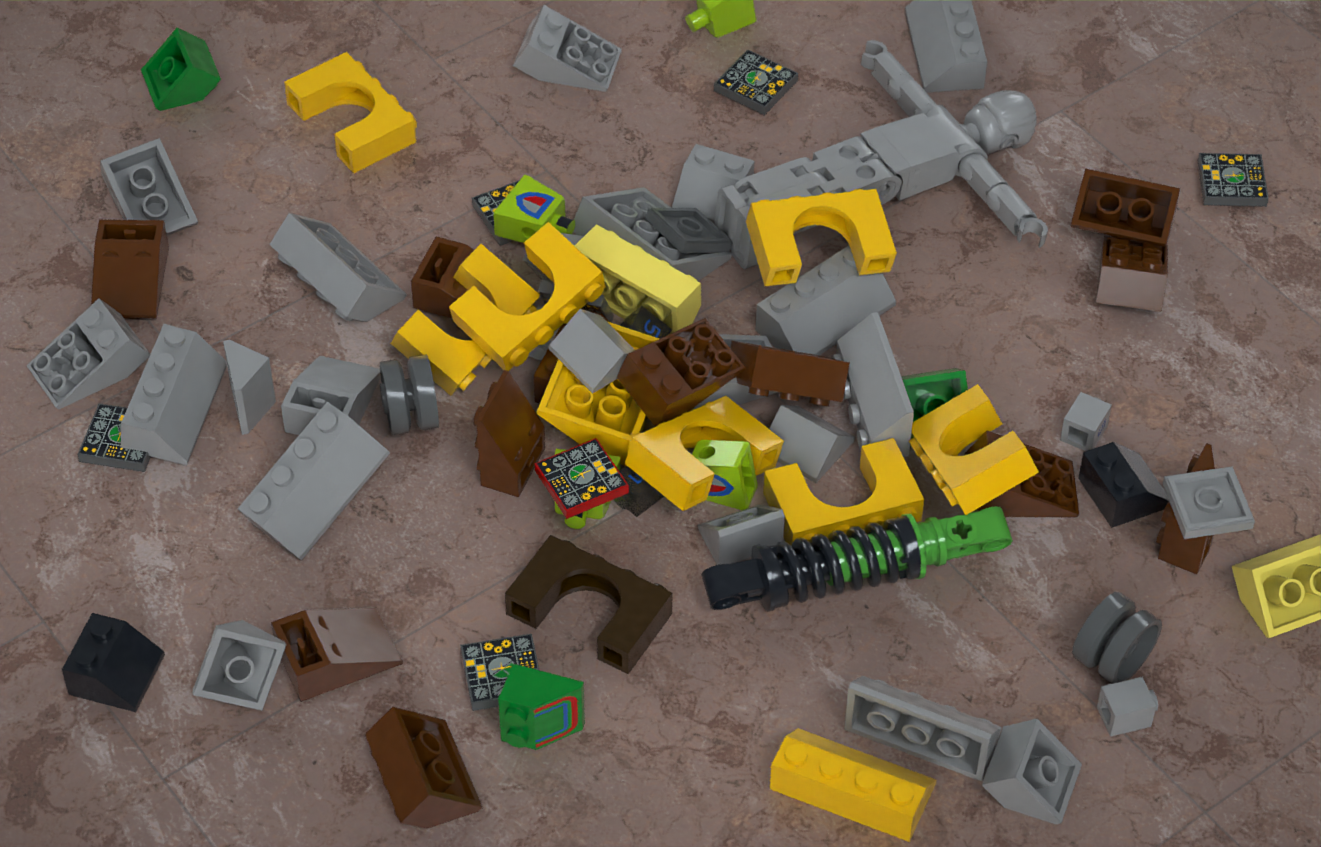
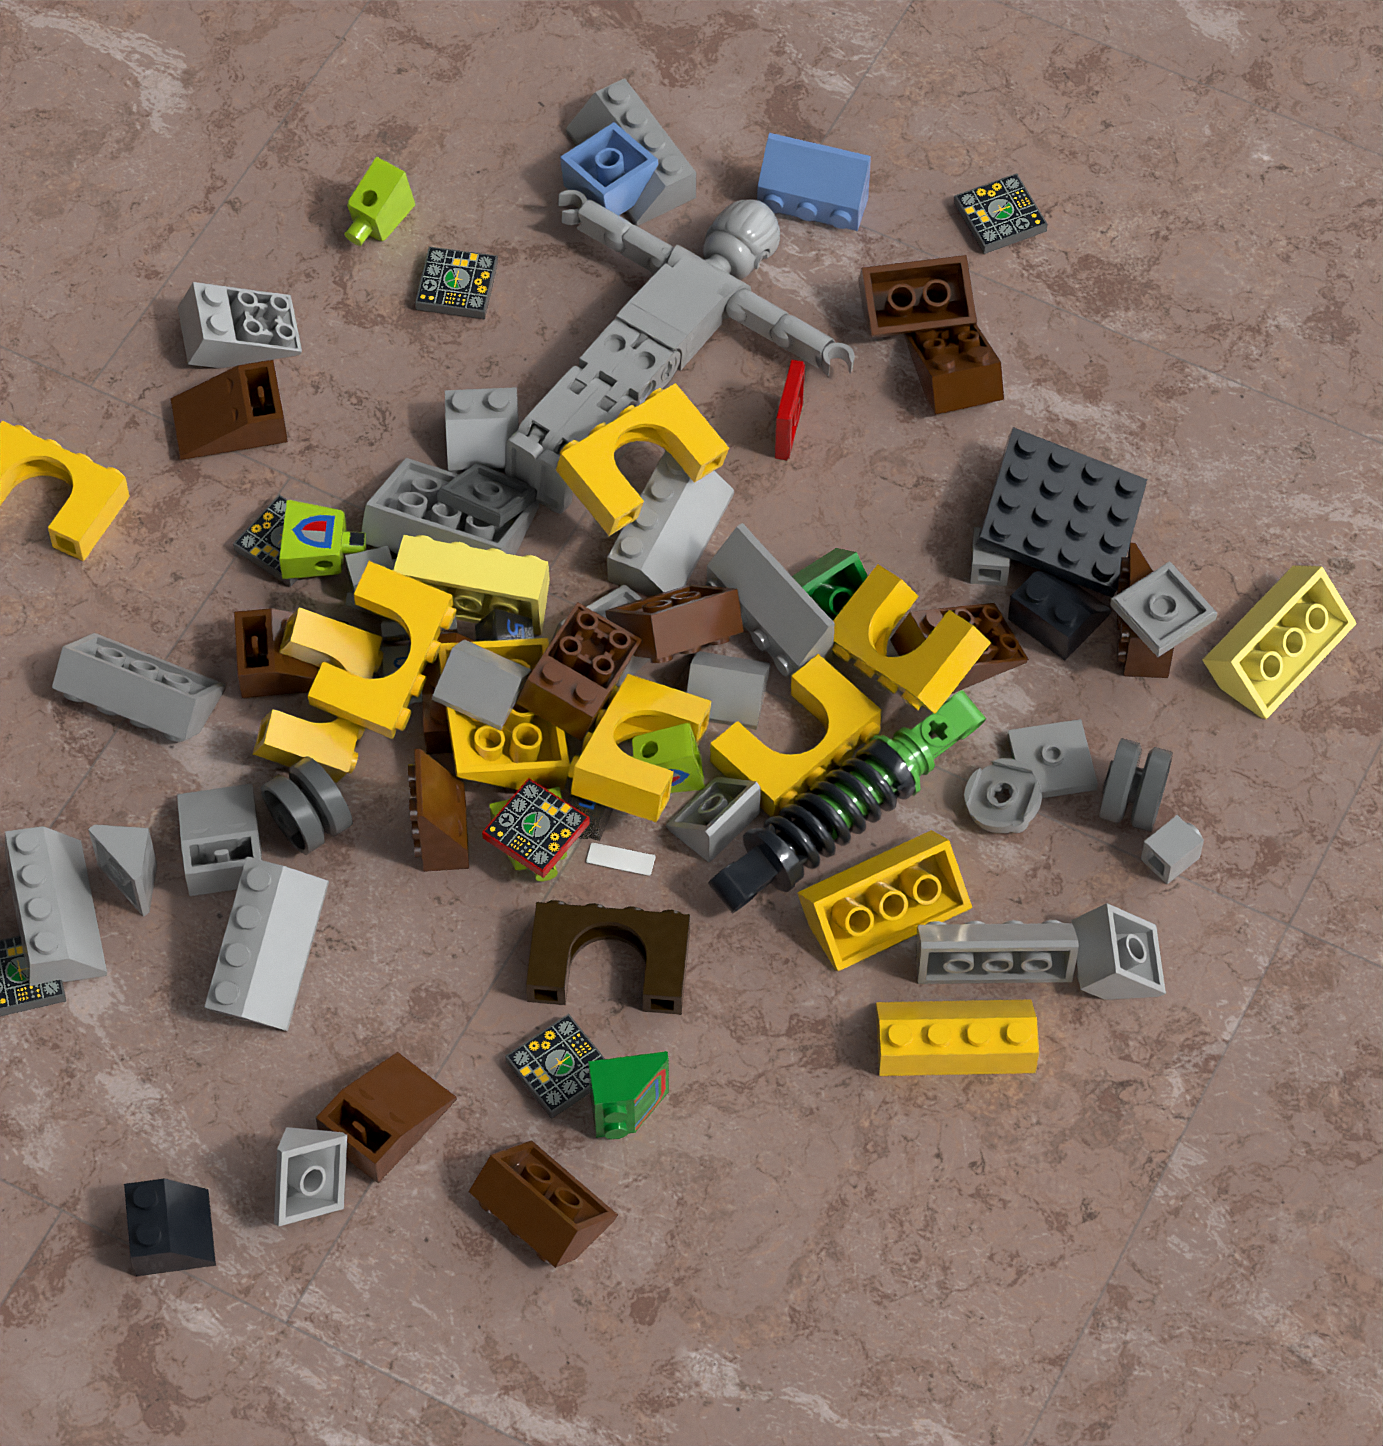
camera: 25 degrees left, 10 degrees up
(526, 107) = (230, 412): none -> reddish brown slope
(646, 536) = (620, 859): none -> white sticker
(839, 646) = (885, 899): none -> yellow slope
(918, 38) = (609, 169): none -> medium blue slope
(970, 253) = (790, 410): none -> red tile
(1001, 623) = (1007, 816): none -> light grey plate
(1056, 597) = (1056, 756): none -> light grey plate
(1083, 101) = (814, 181): none -> medium blue slope
(1163, 406) = (1062, 512): none -> black plate

